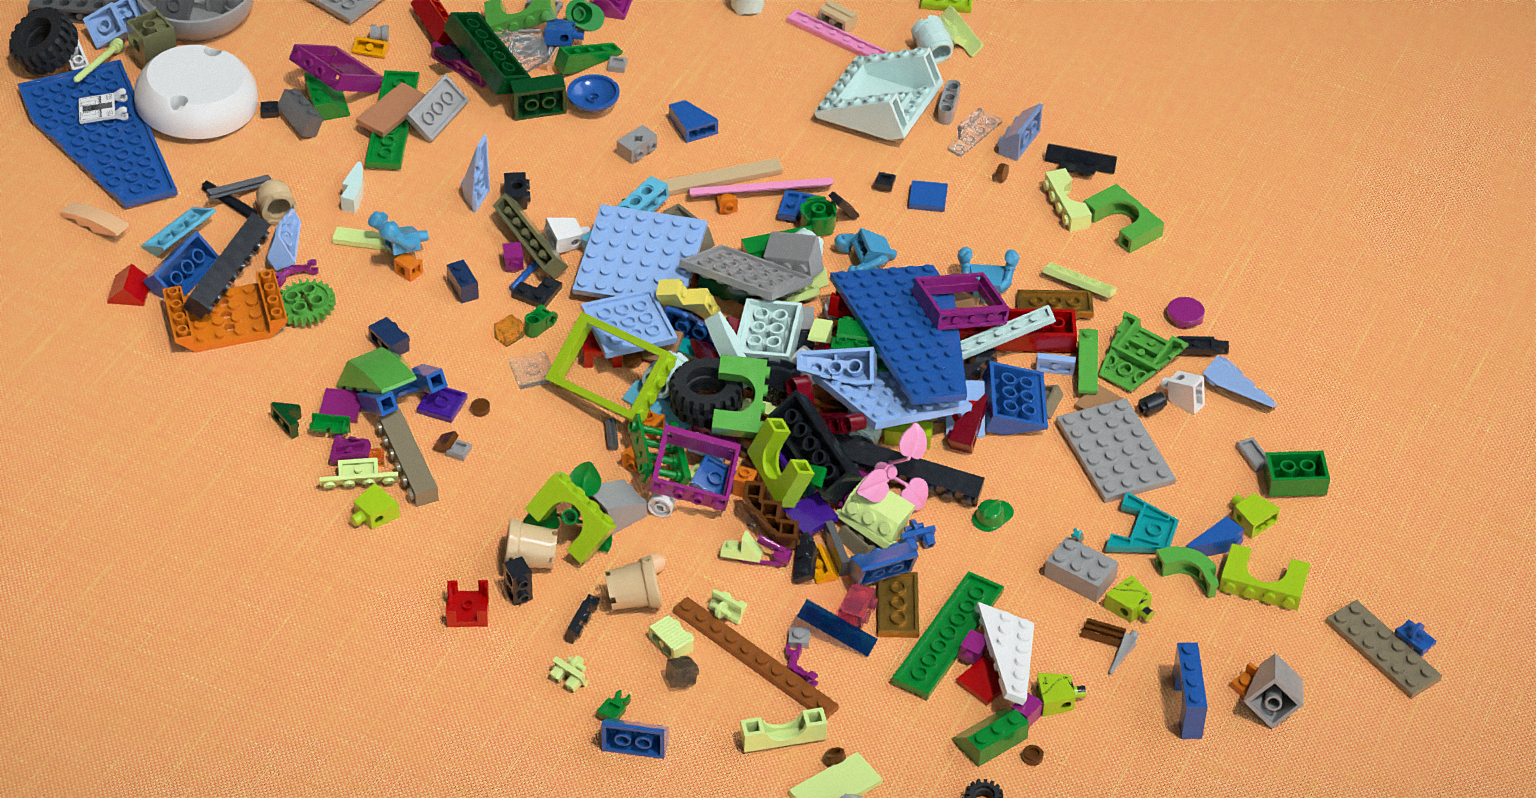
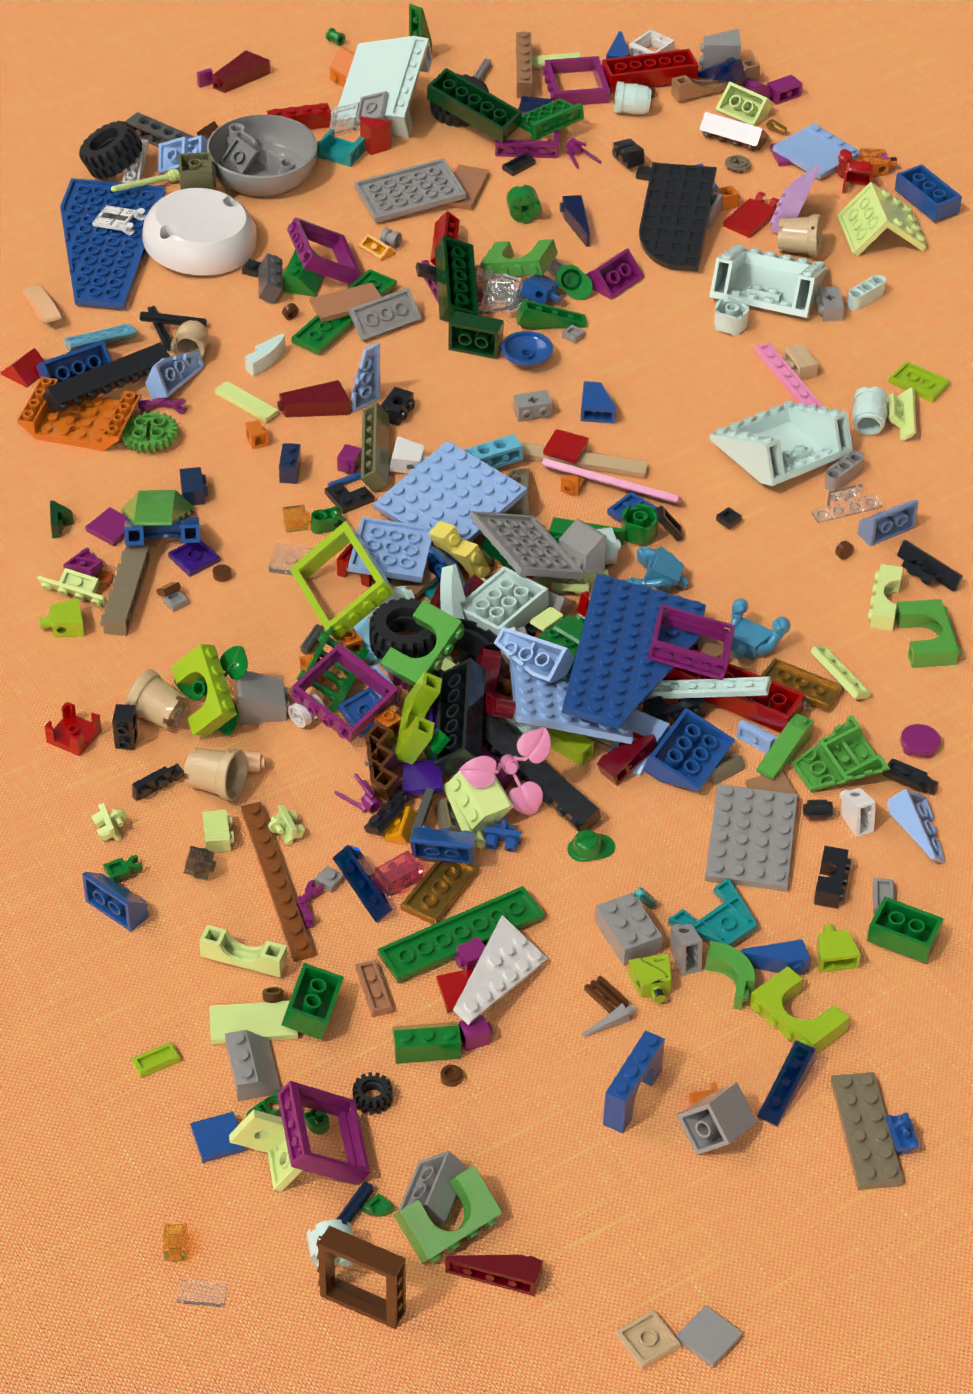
camera: 30 degrees right, 0 degrees up
(334, 423) = (89, 538): green hinge -> none
(342, 138) = (290, 311): none -> reddish brown tile
(396, 238) = (257, 404): dark azure torso -> none
(441, 211) = (316, 400): none -> dark red slope
(697, 170) = (566, 446): none -> red tile
(746, 550) = (341, 781): yellowish green slope -> none
(879, 744) = (312, 1001): none -> green brick
(911, 712) = (374, 988): none -> nougat tile
(928, 196) = (759, 545): blue tile -> none
(1057, 693) = (515, 1030): lime torso -> none
(1140, 562) = (683, 941): none -> light grey torso
(1211, 466) = (829, 889): none -> black arch
(1300, 637) = (788, 1082): none -> clear blue slope

